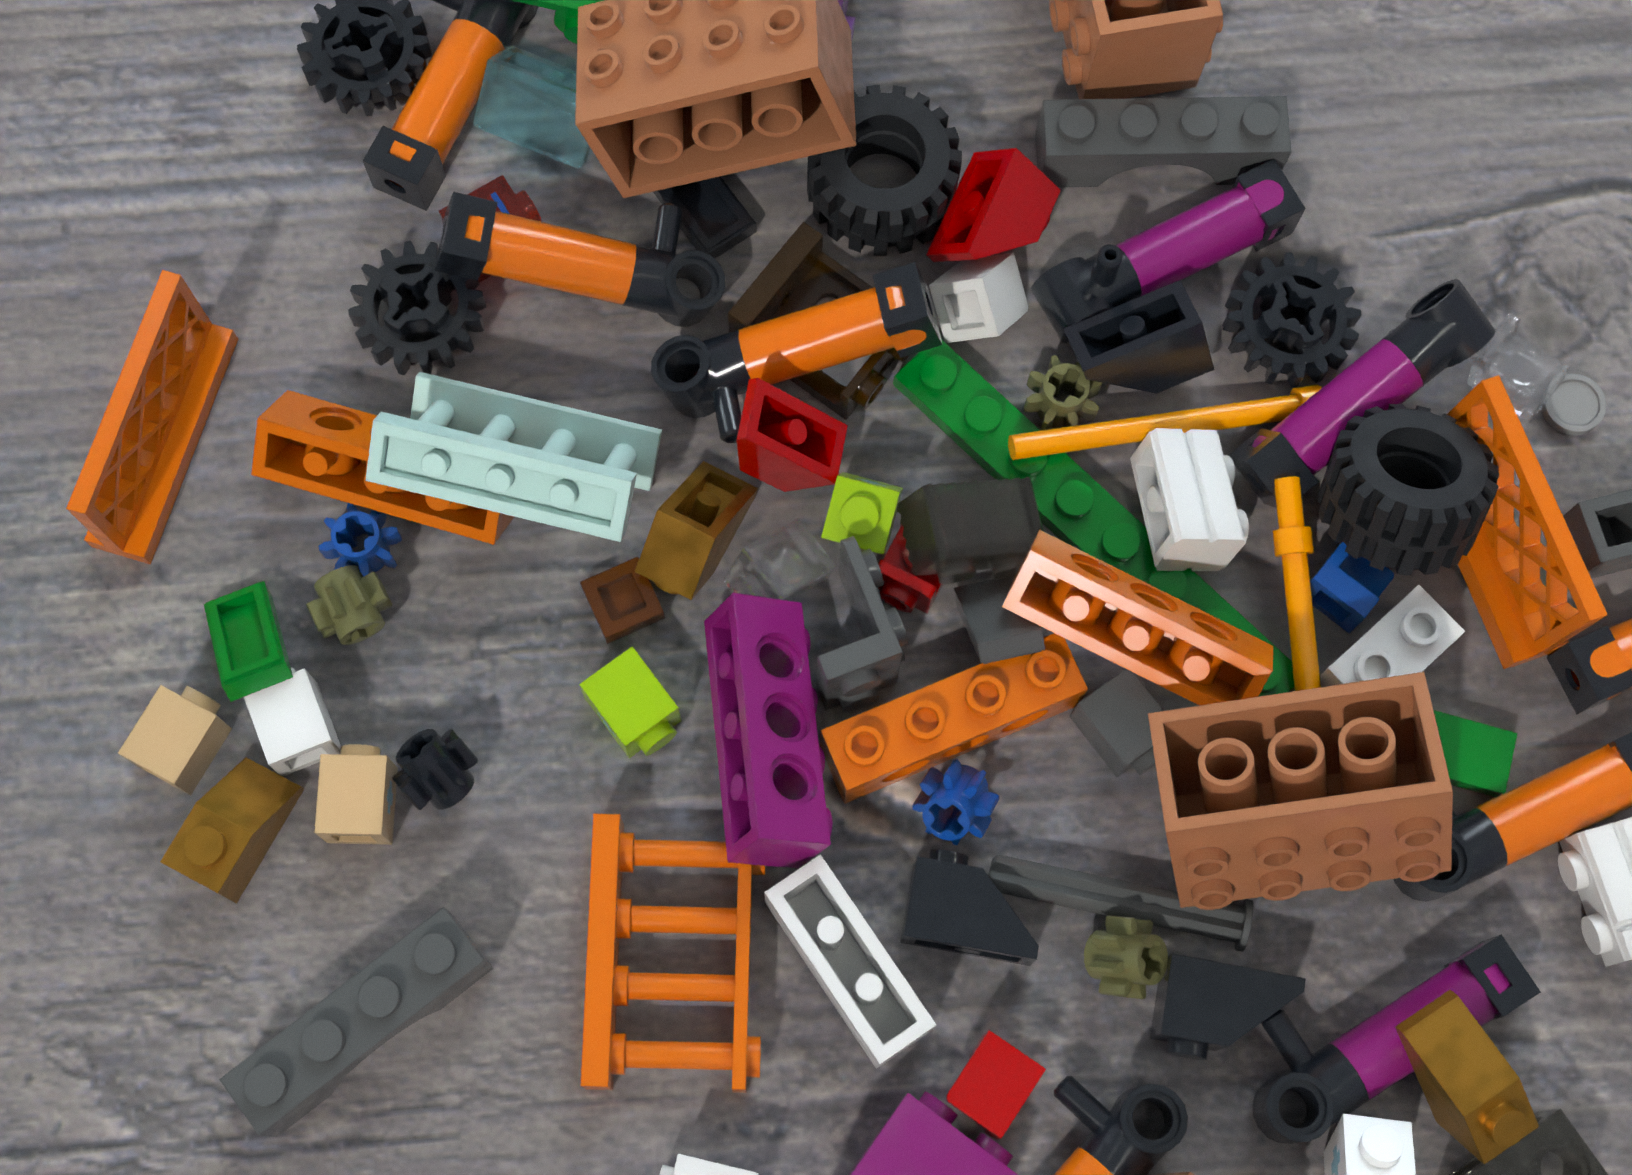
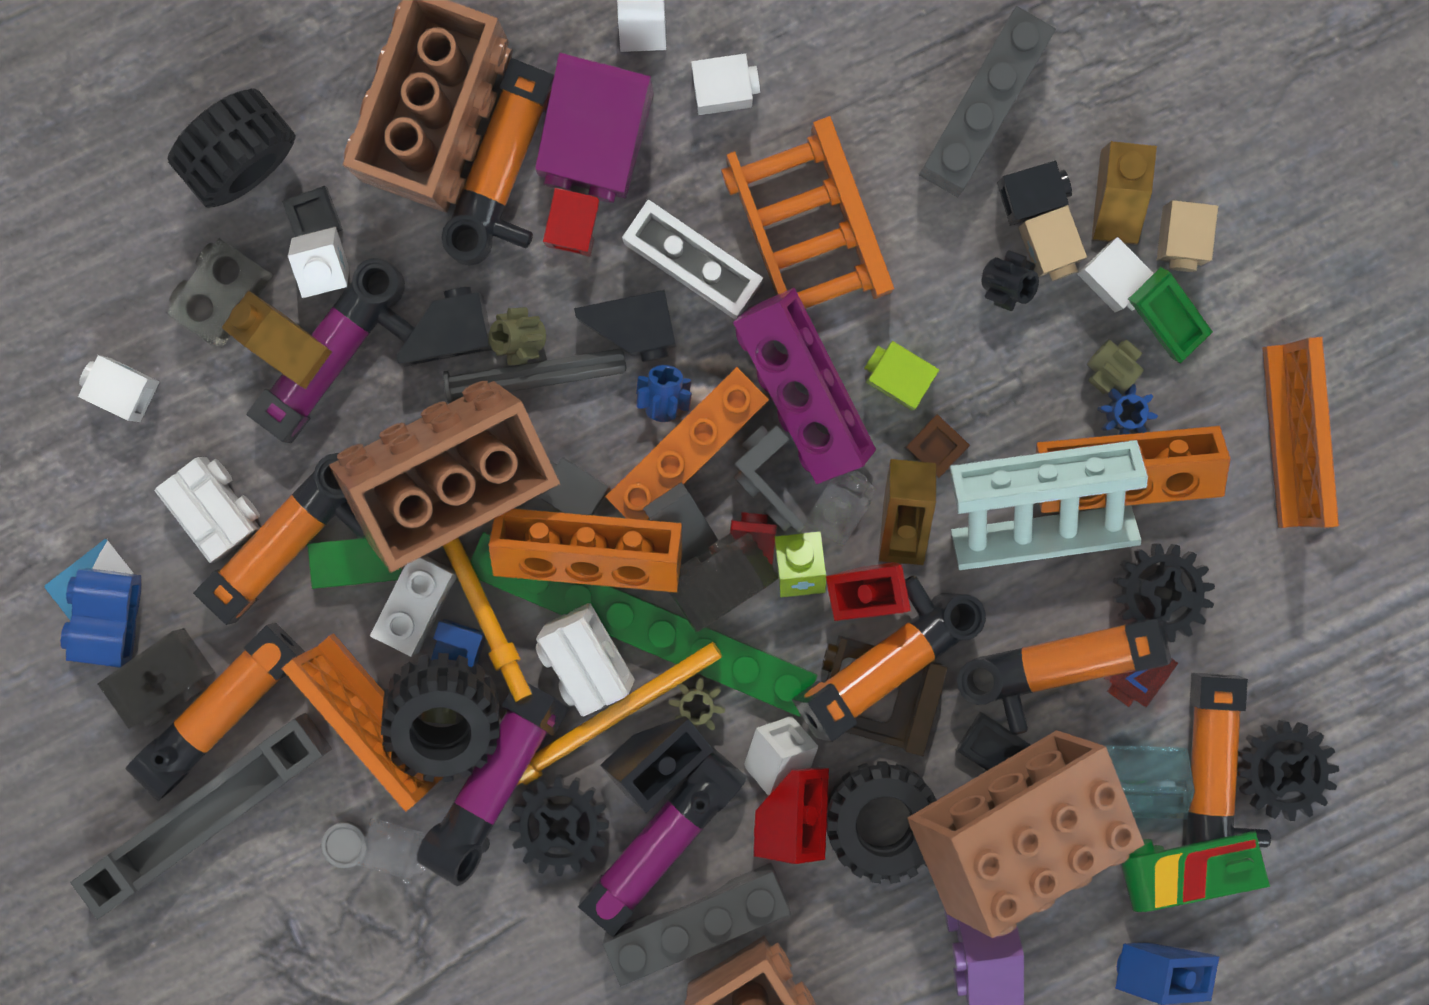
camera: 155 degrees right, 15 degrees up
(350, 874) = (1034, 192): none -> black brick

